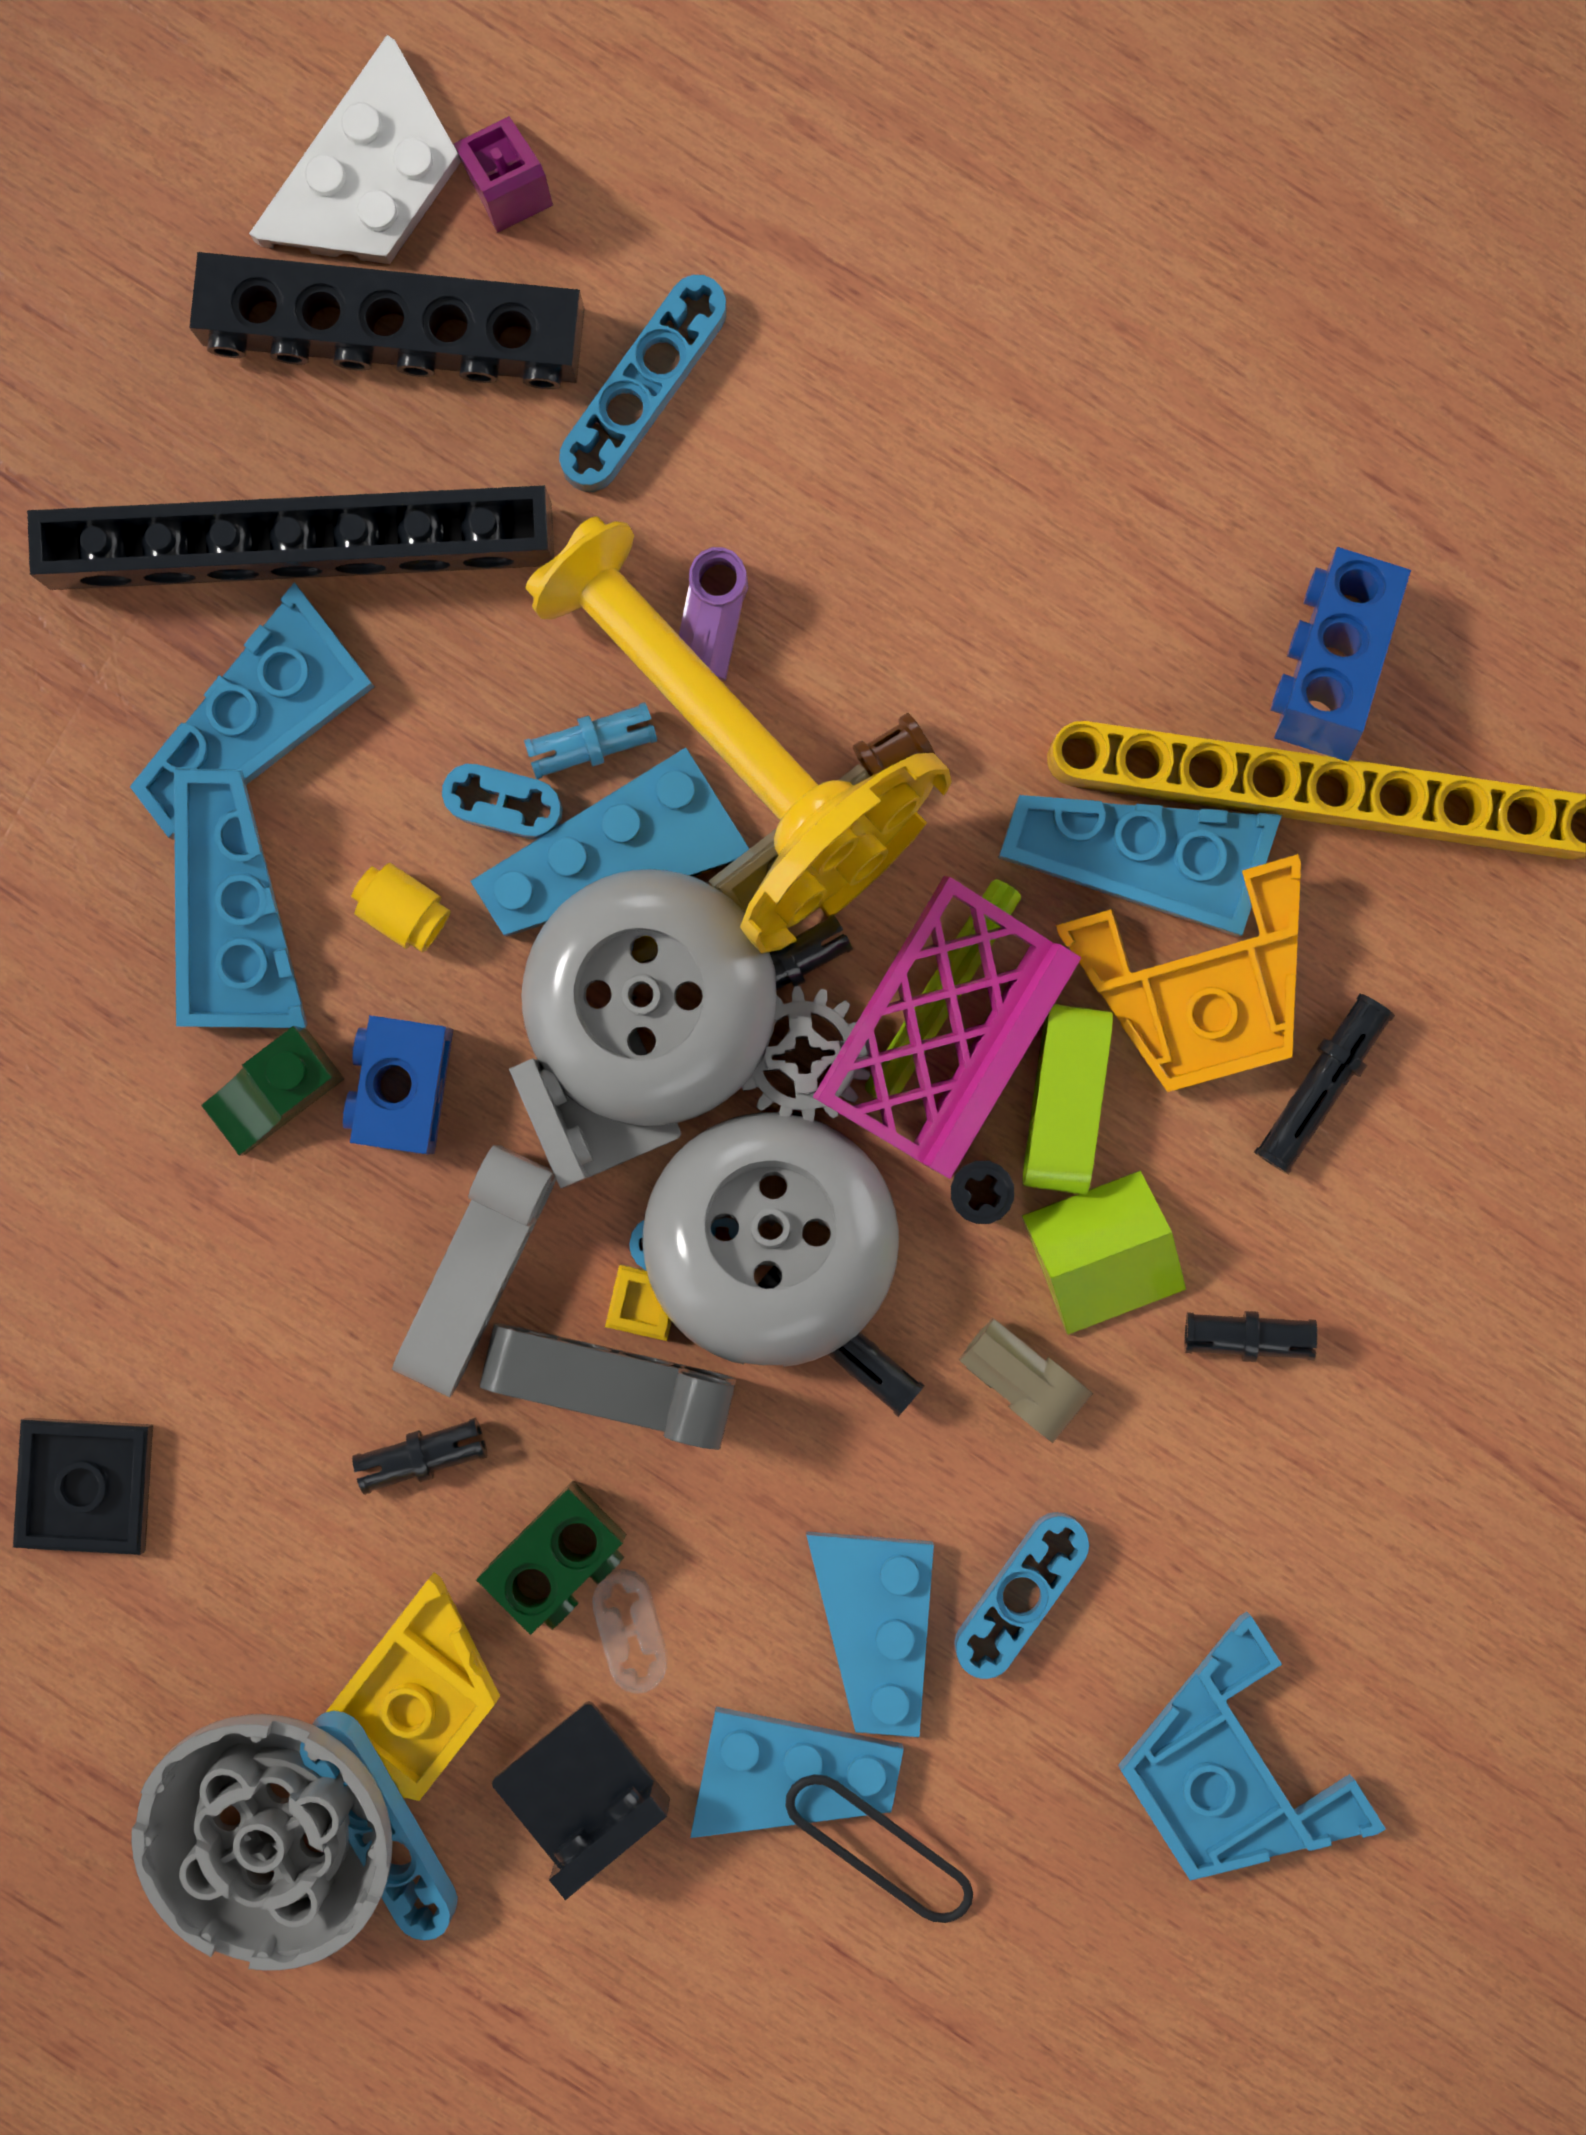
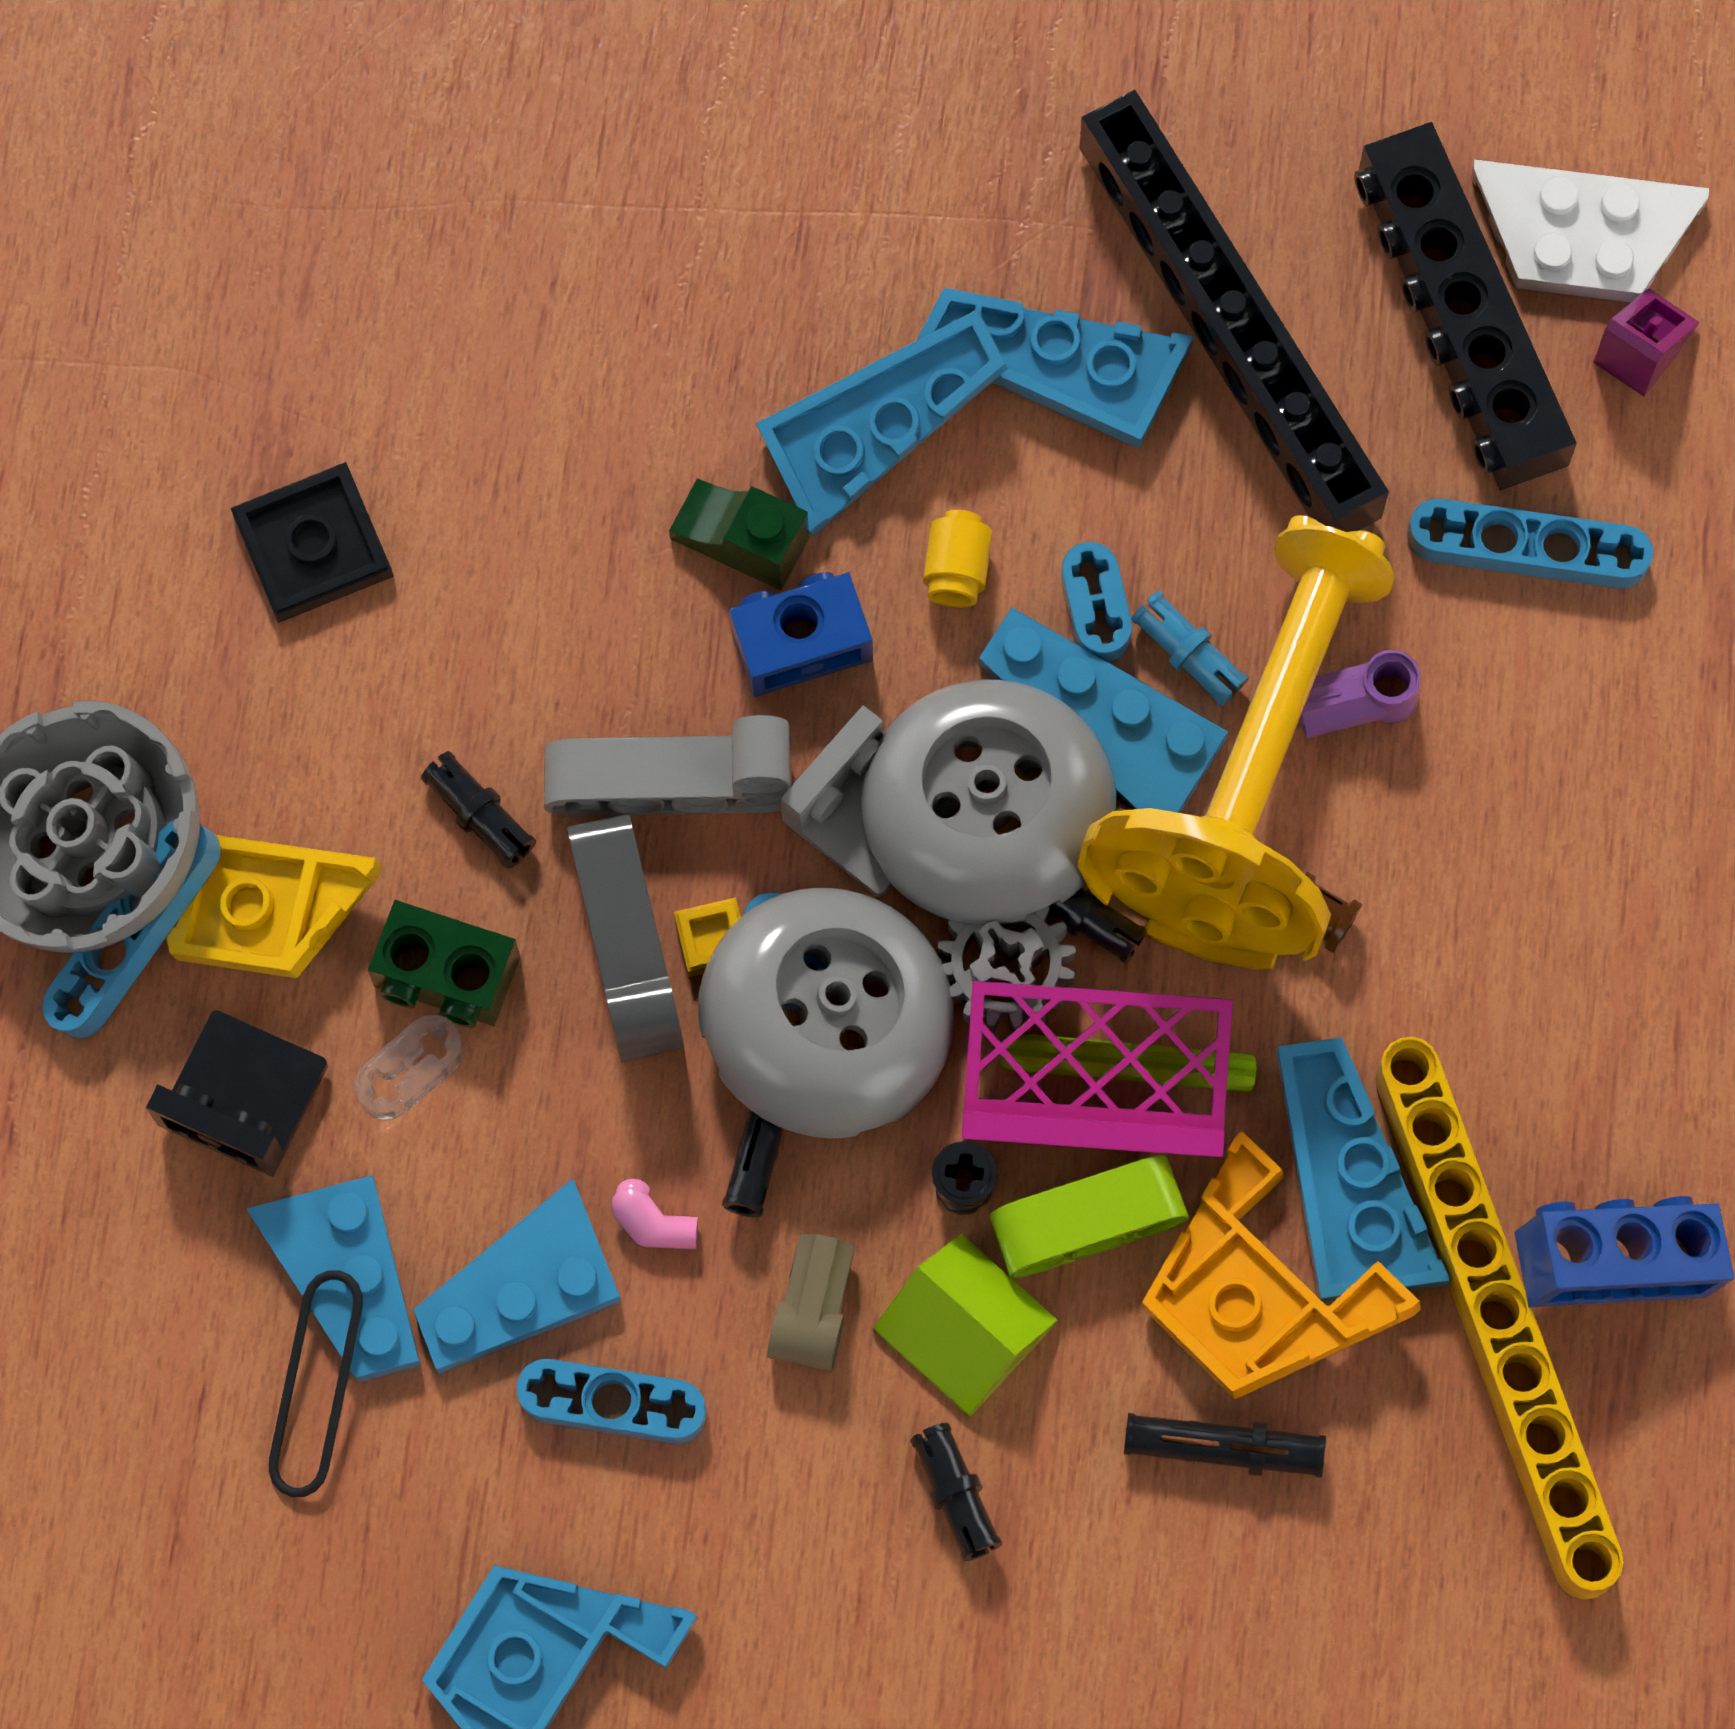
camera: 65 degrees right, 15 degrees down
(878, 1488) = (647, 1223): none -> bright pink arm

